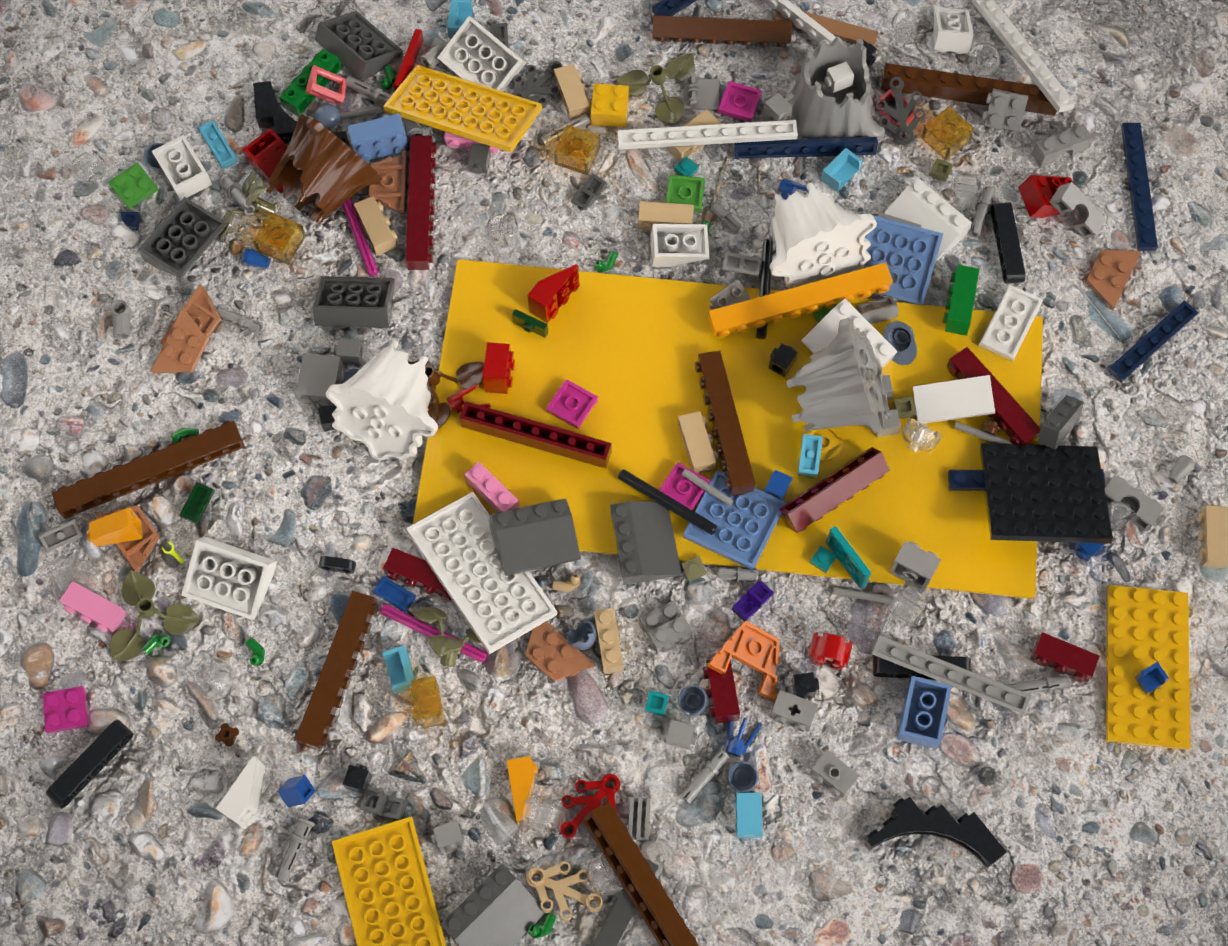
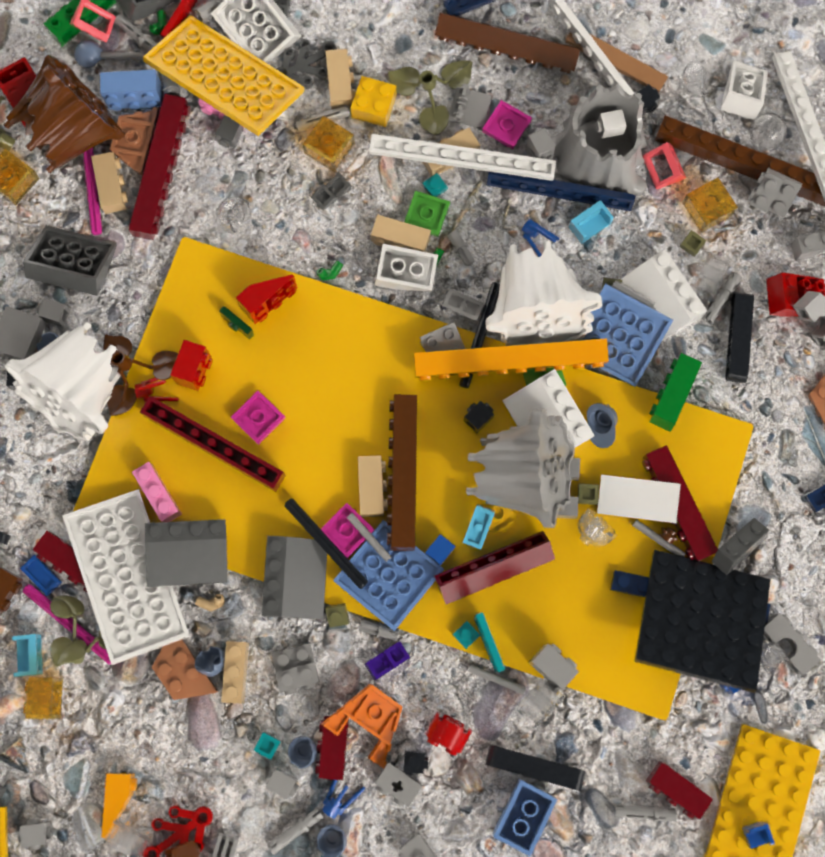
camera: 10 degrees right, 10 degrees up
(271, 114) = (31, 38): black arch -> none
(878, 310) = (588, 383): light grey slope -> none
(901, 114) = (667, 174): dark grey plant -> none
(951, 674) = (560, 787): light grey plate -> none
(1010, 323) = (719, 425): white tile -> none

